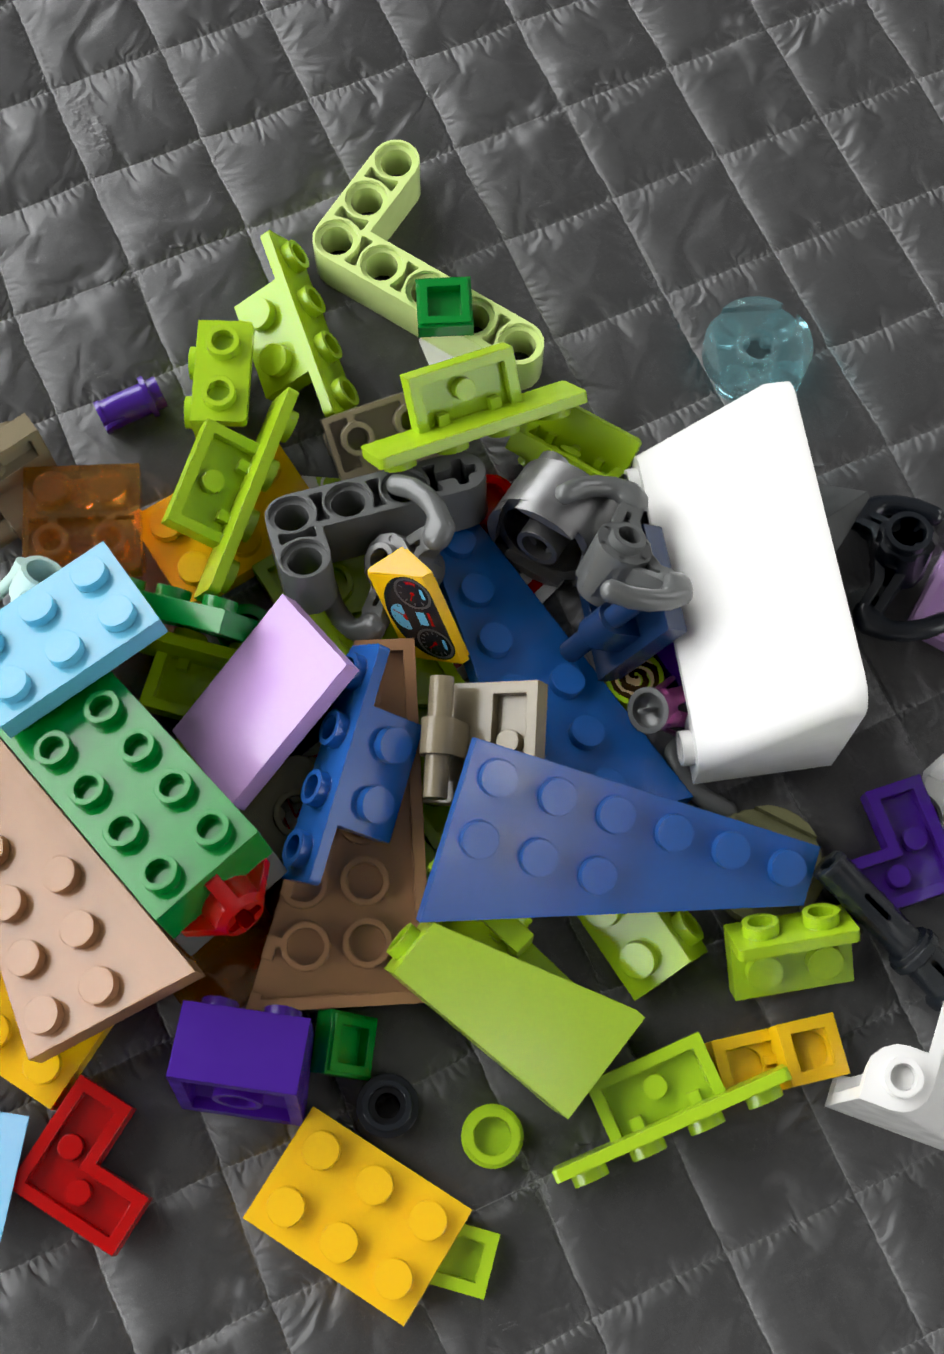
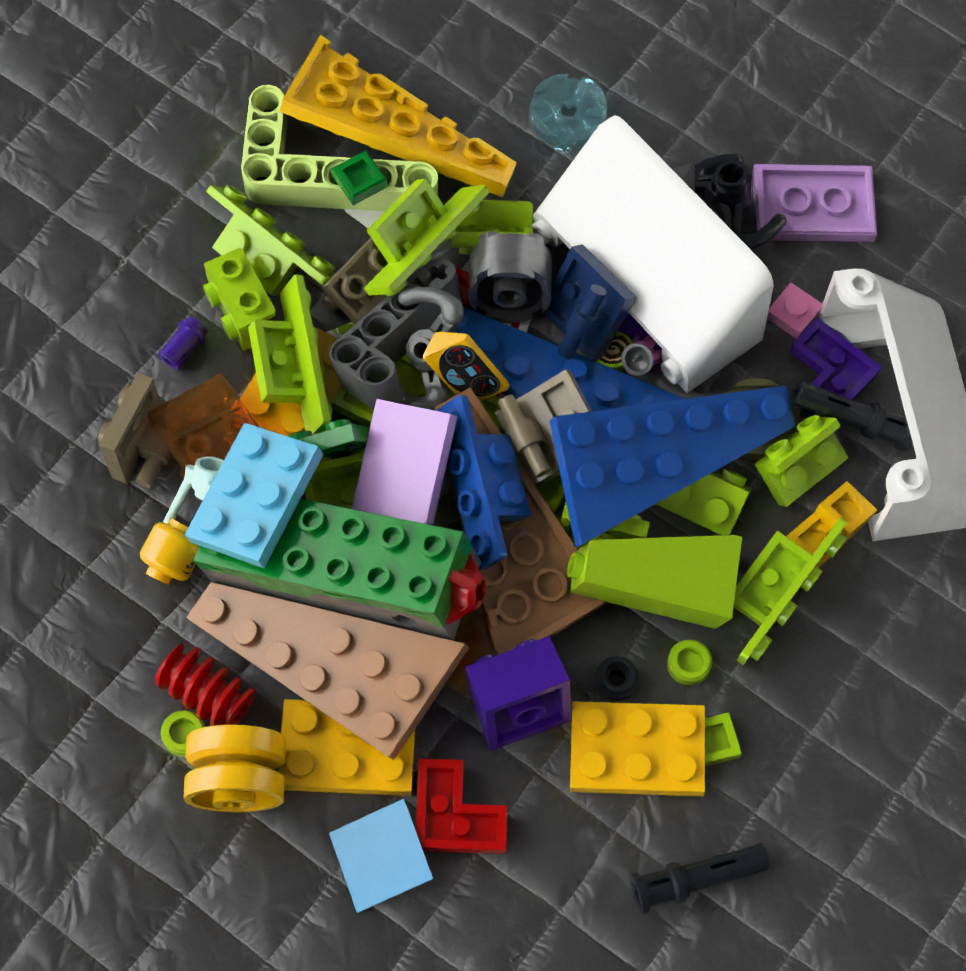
camera: 30 degrees left, 5 degrees down
(343, 1045) = (573, 654): green tile -> none
(525, 245) = (387, 118): none -> yellow wing
(620, 558) = (570, 272): dark grey piece -> none
(896, 747) = (794, 310): none -> bright pink plate

